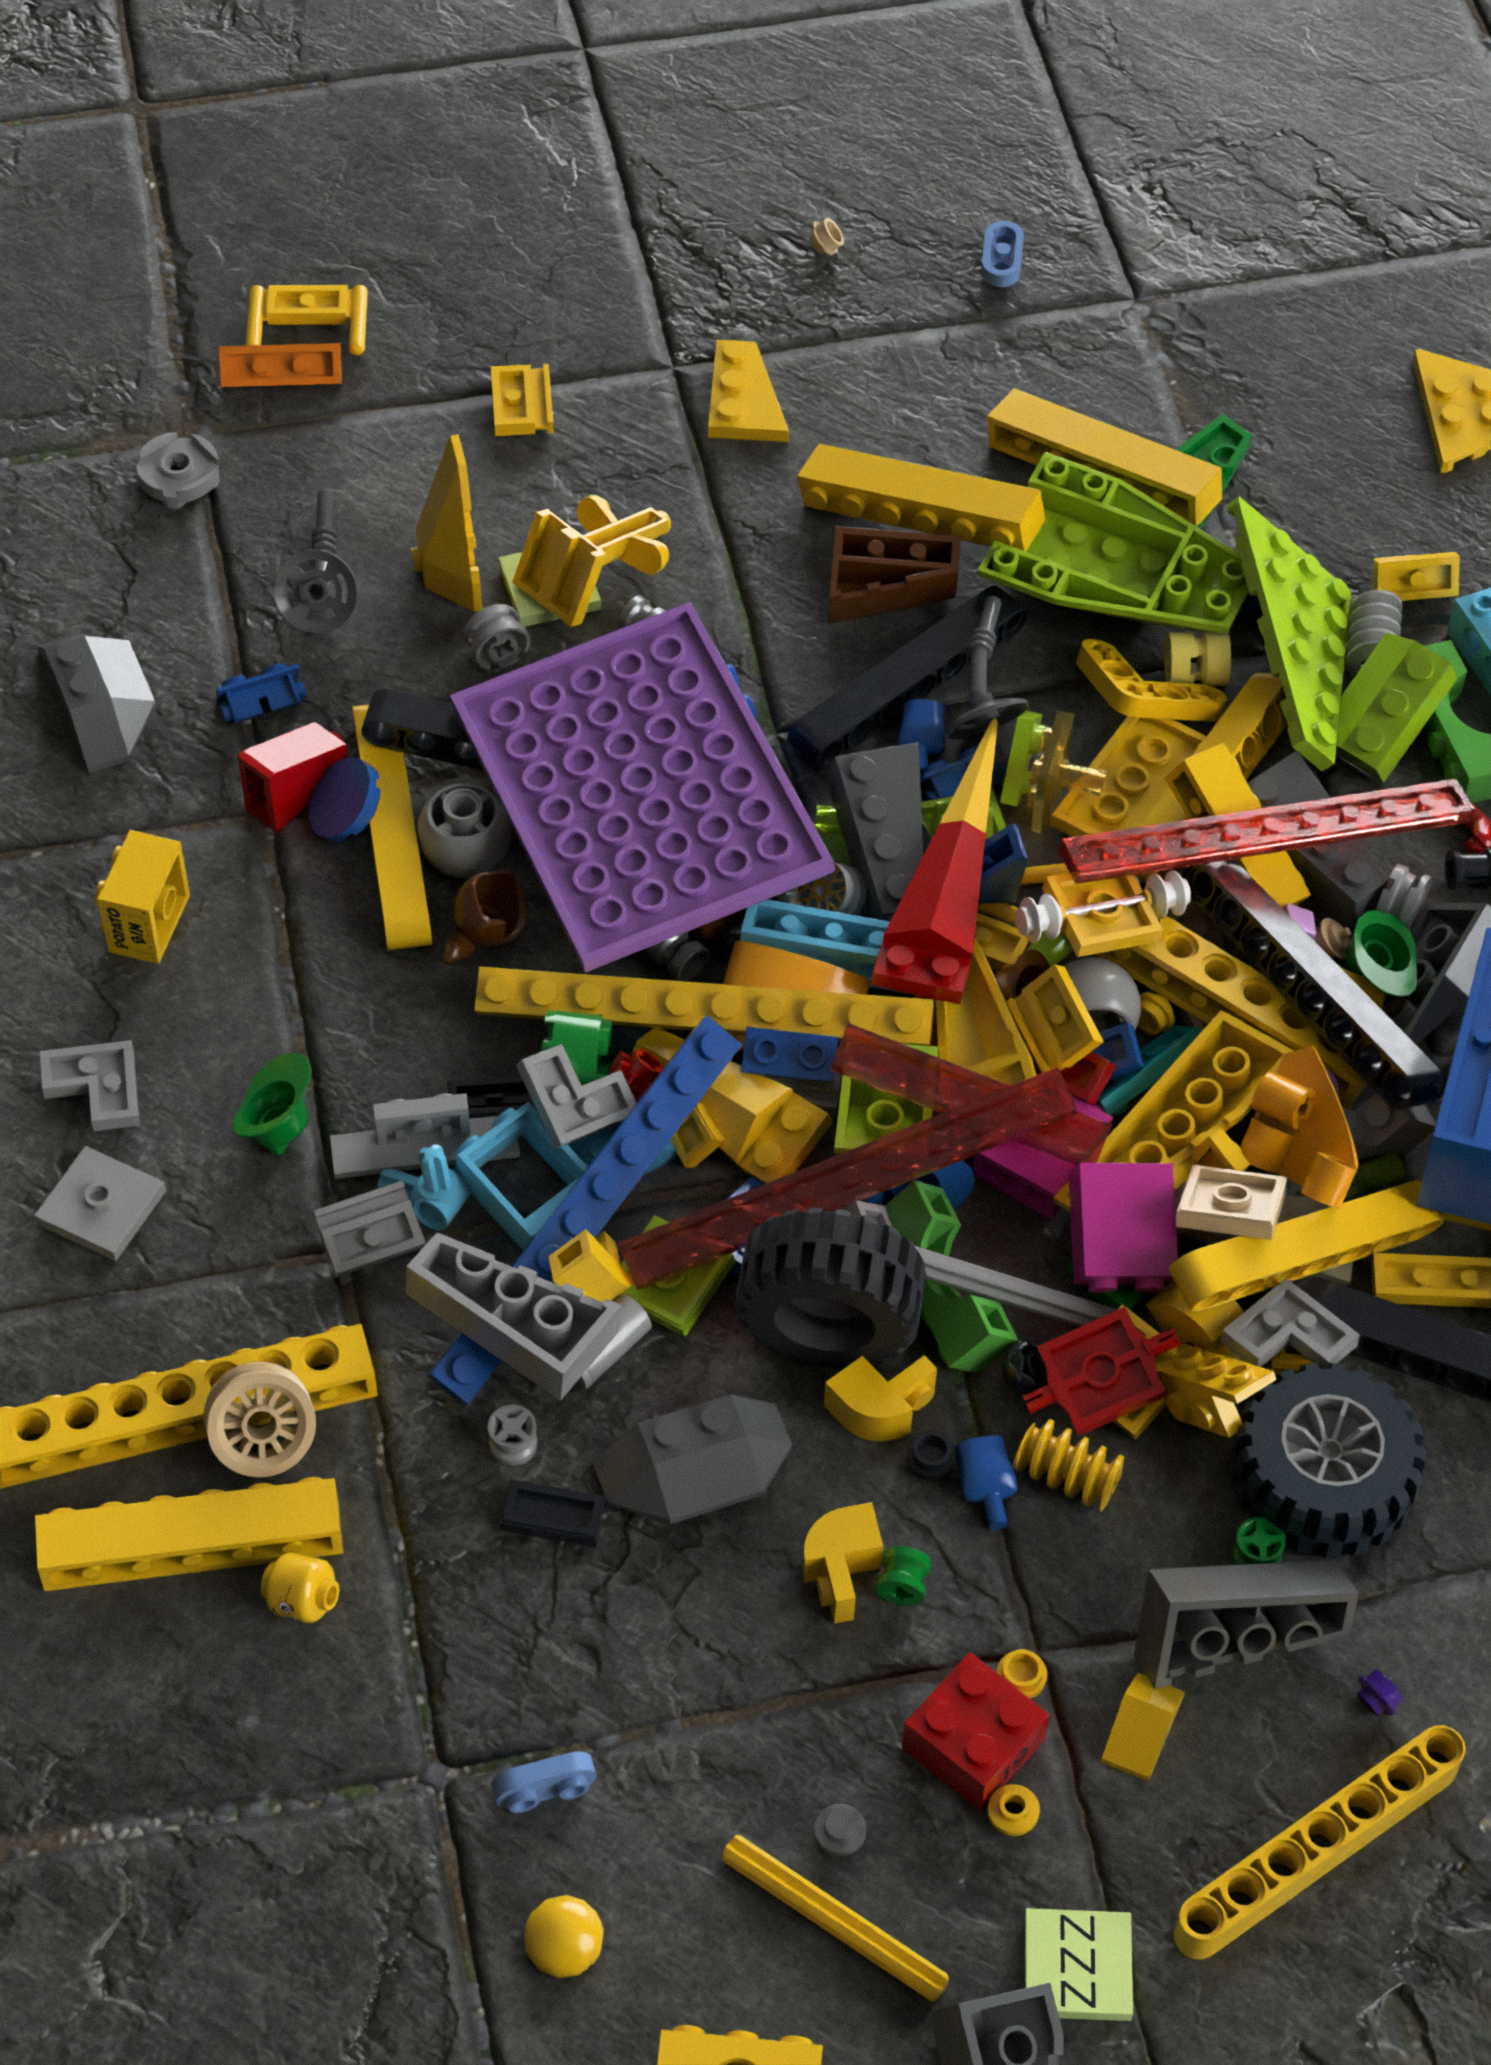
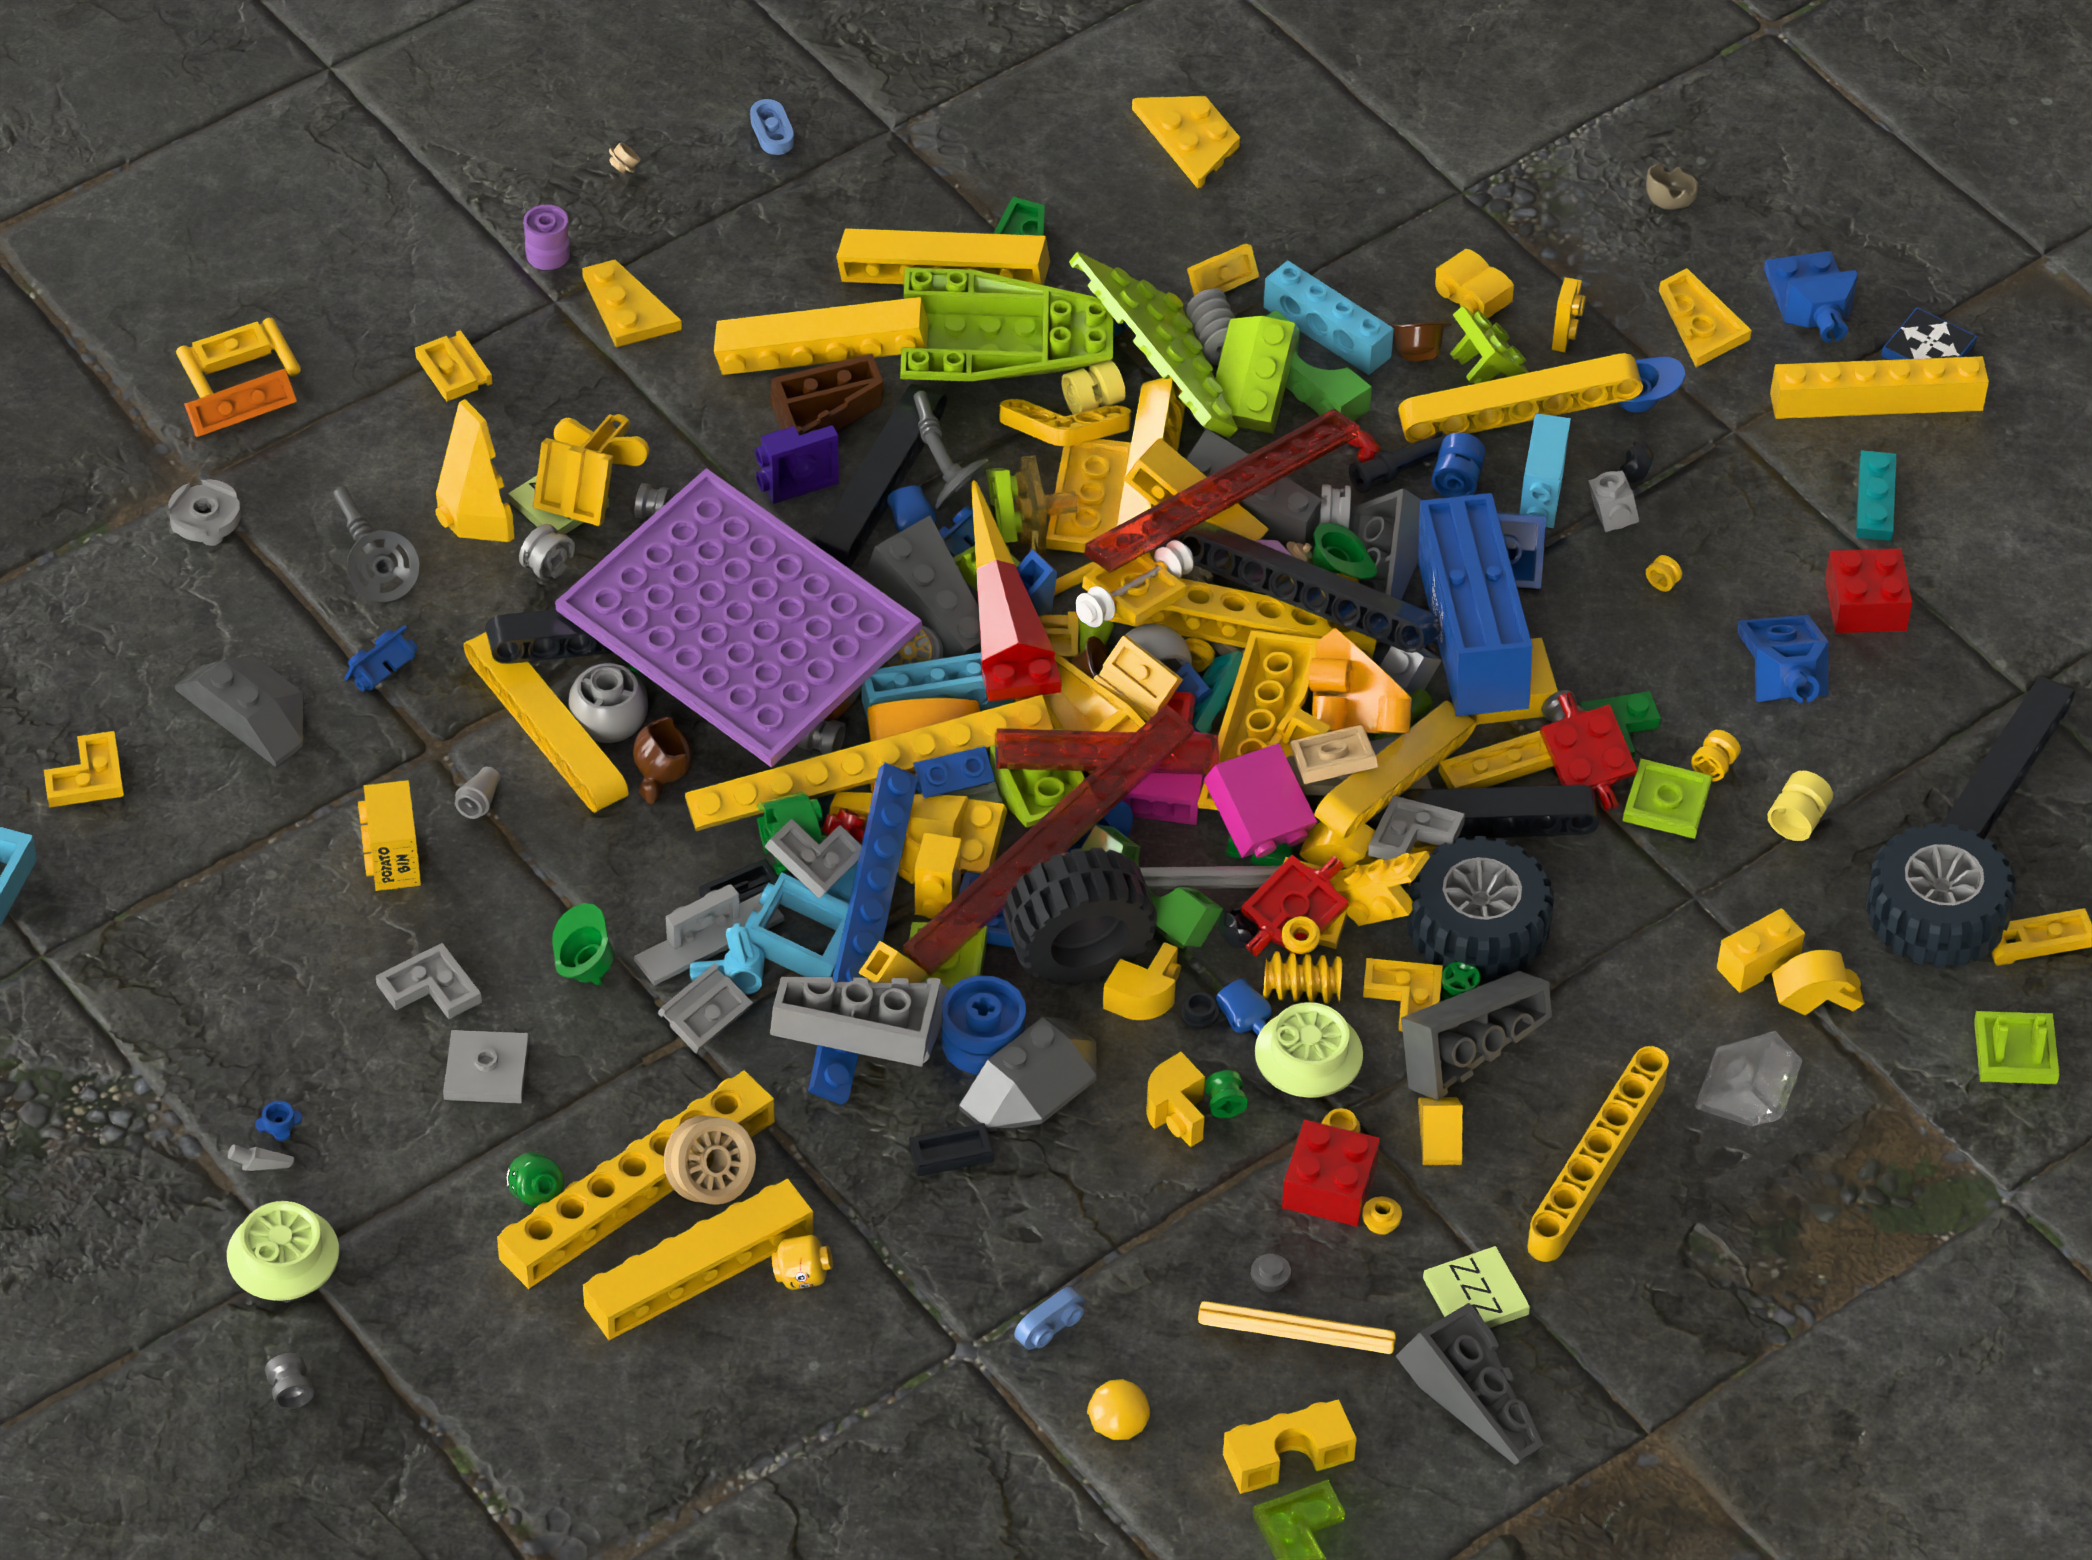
camera: 25 degrees left, 5 degrees down
(63, 1362) = (534, 1178): none -> green head
(271, 882) = (476, 795): none -> light grey cone
(284, 772) = (446, 709): red slope -> none
(344, 800) = (501, 712): blue tile -> none
(512, 1422) = (891, 1097): light grey wheel -> none
(663, 1367) = (980, 1020): none -> blue wheel
(694, 293) = (546, 237): none -> medium lavender wheel
(706, 1168) = (937, 874): none -> yellow brick
(818, 631) = (797, 463): none -> dark purple plate
(1031, 1562) = (1309, 1051): none -> yellowish green wheel
(1087, 1397) = (1301, 925): none -> yellow plate
(1199, 1520) = (1409, 982): none -> yellow plate
(1379, 1693) = (1589, 1047): dark purple plate -> none

